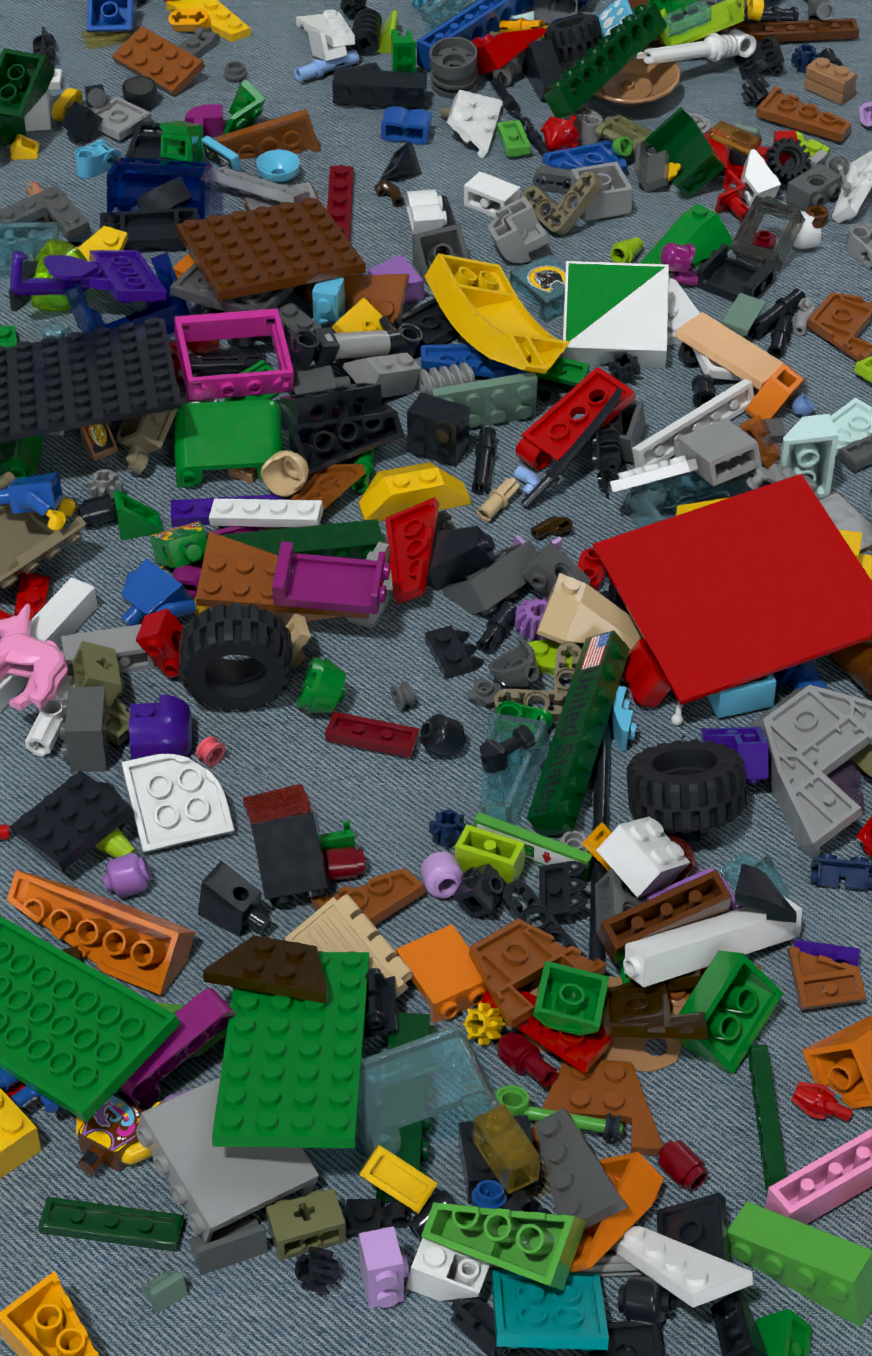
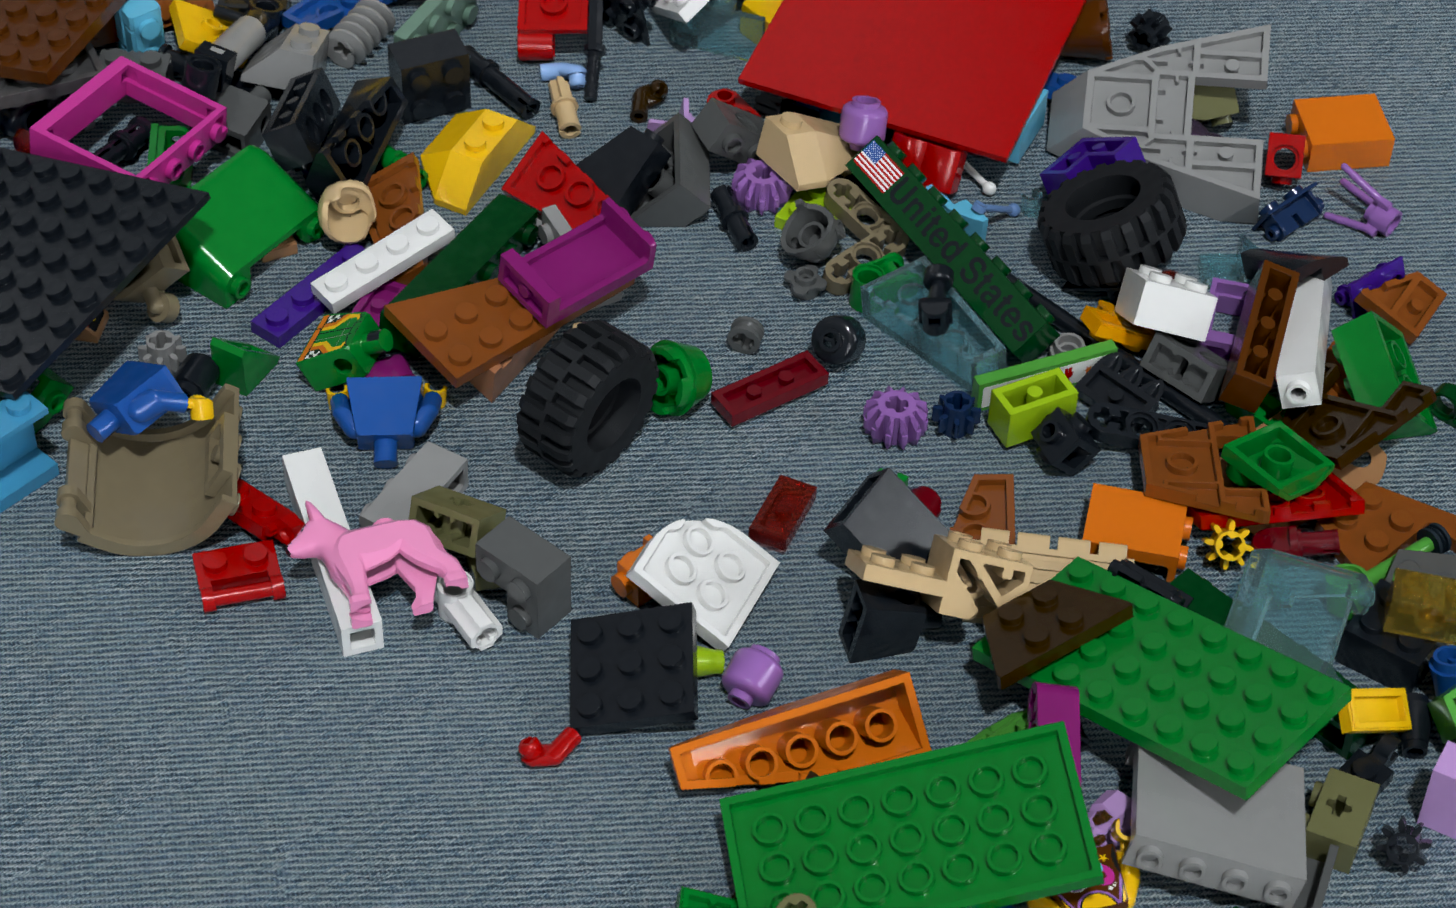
camera: 50 degrees left, 0 degrees up
(160, 640) = (481, 443): red brick -> none
(160, 728) = (588, 530): dark purple brick -> none
(210, 751) = (652, 512): coral bush -> none
(270, 902) = (992, 568): none -> tan piece
(412, 803) = (895, 417): none -> medium lavender gear
(441, 874) = (1012, 453): lavender head -> none
(451, 652) = (720, 270): black plate -> none
(622, 616) = (862, 121): none -> medium lavender head
(631, 720) = (1012, 209): none -> medium blue hinge

